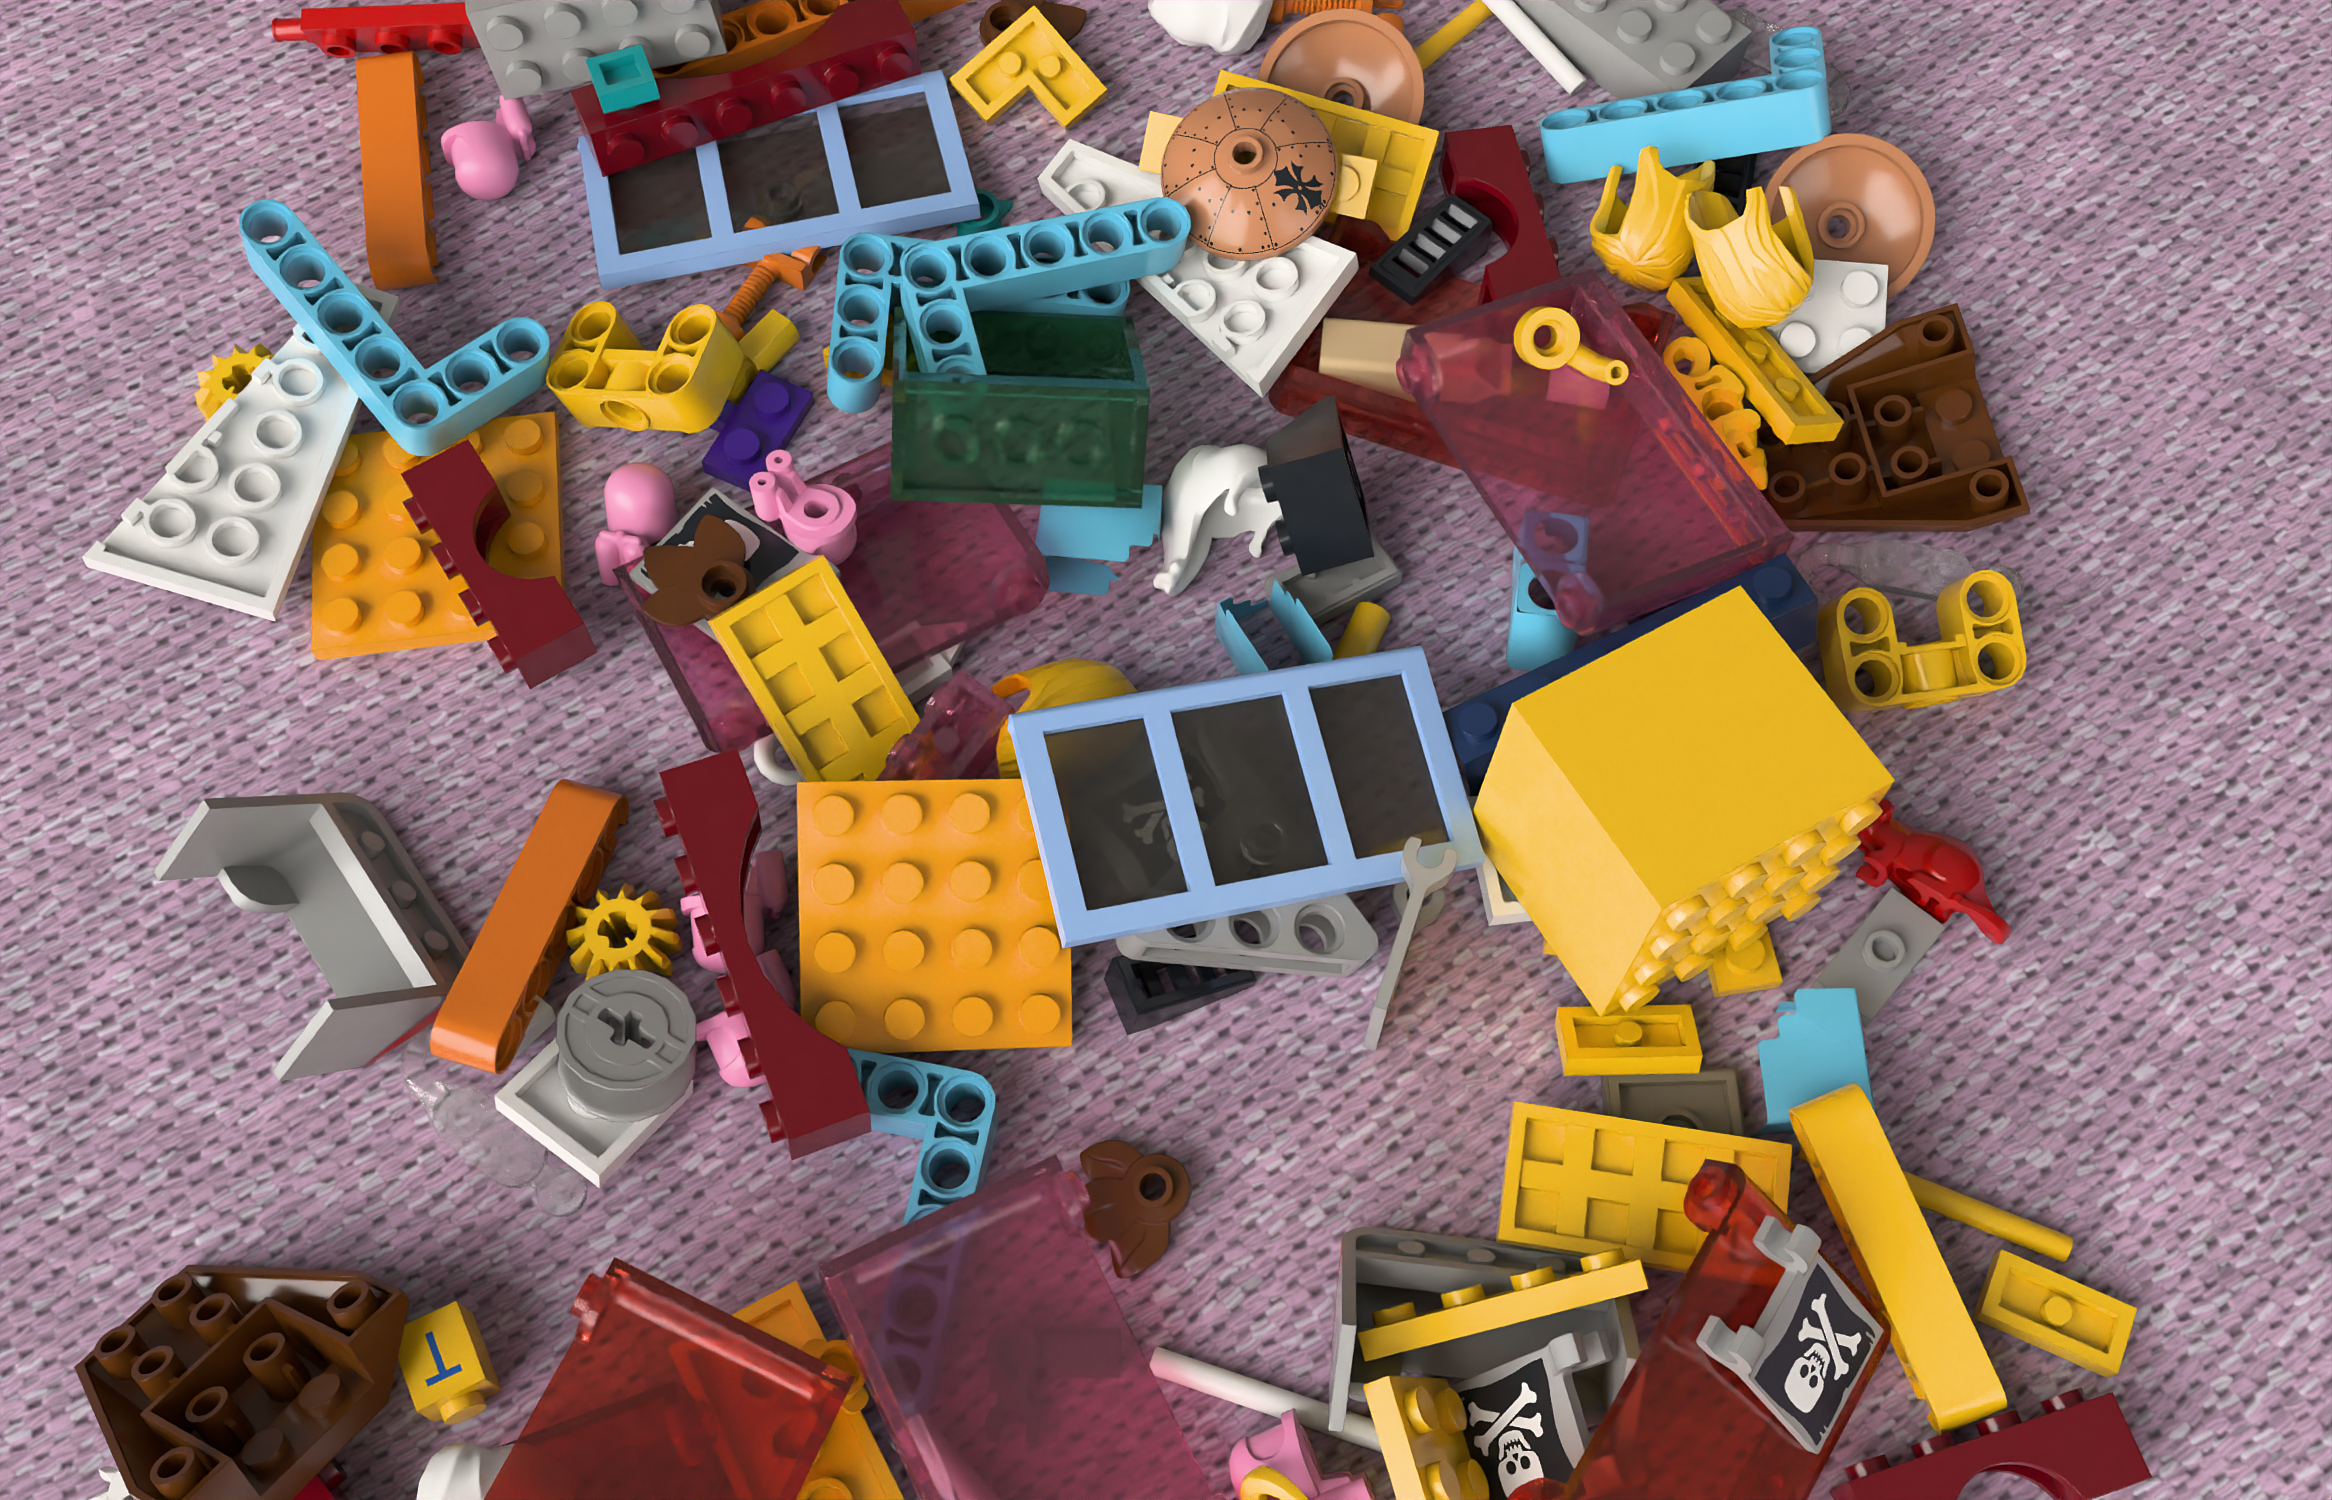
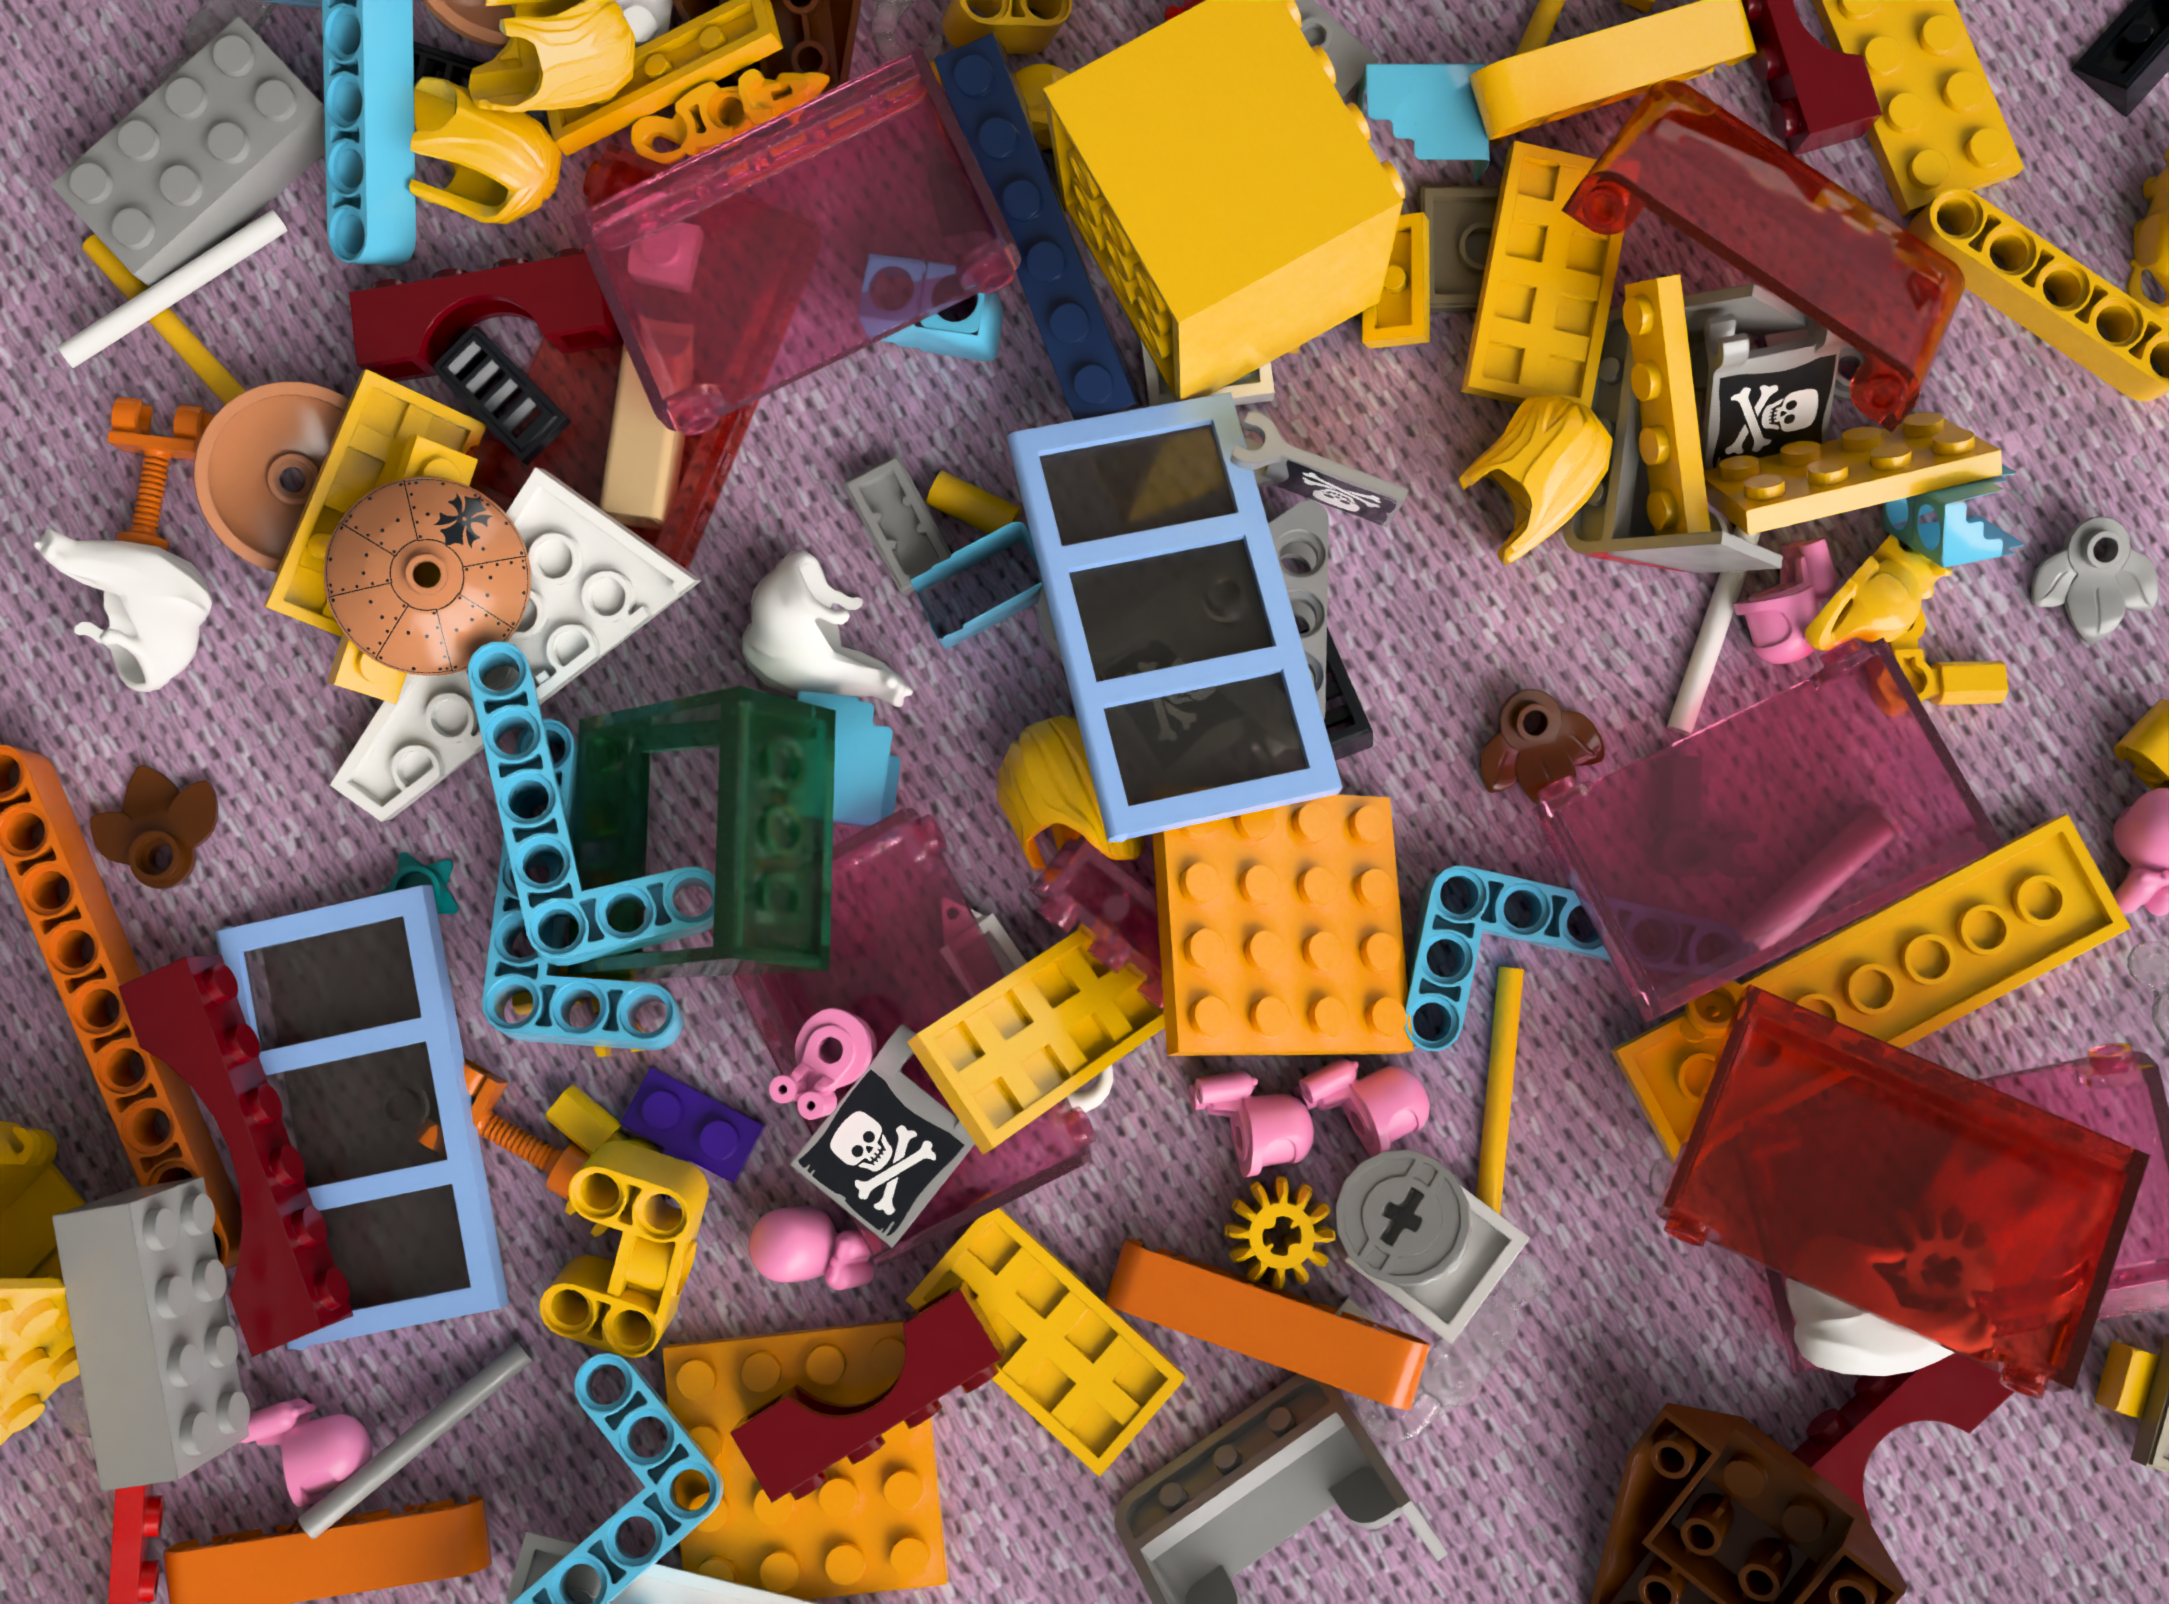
camera: 85 degrees left, 20 degrees up
(447, 1365) = (1690, 1367): yellow brick -> none
(491, 224) = (414, 1440): none -> light grey bar
(517, 742) = (1065, 1348): none -> yellow plate
(622, 79) = (251, 1292): teal plate -> none
(693, 575) = (901, 1179): reddish brown plate -> none
(760, 1169) = (1499, 1087): none -> yellow piece
(806, 1073) = (1453, 1040): dark red arch -> none
(1027, 59) = (218, 823): yellow plate -> none
(1317, 491) = (819, 528): black slope -> none
(1432, 1181) = (1547, 465): none -> yellow hair
(1563, 346) = (663, 257): yellow plate -> none
(1806, 1341) = (1721, 147): flag -> none

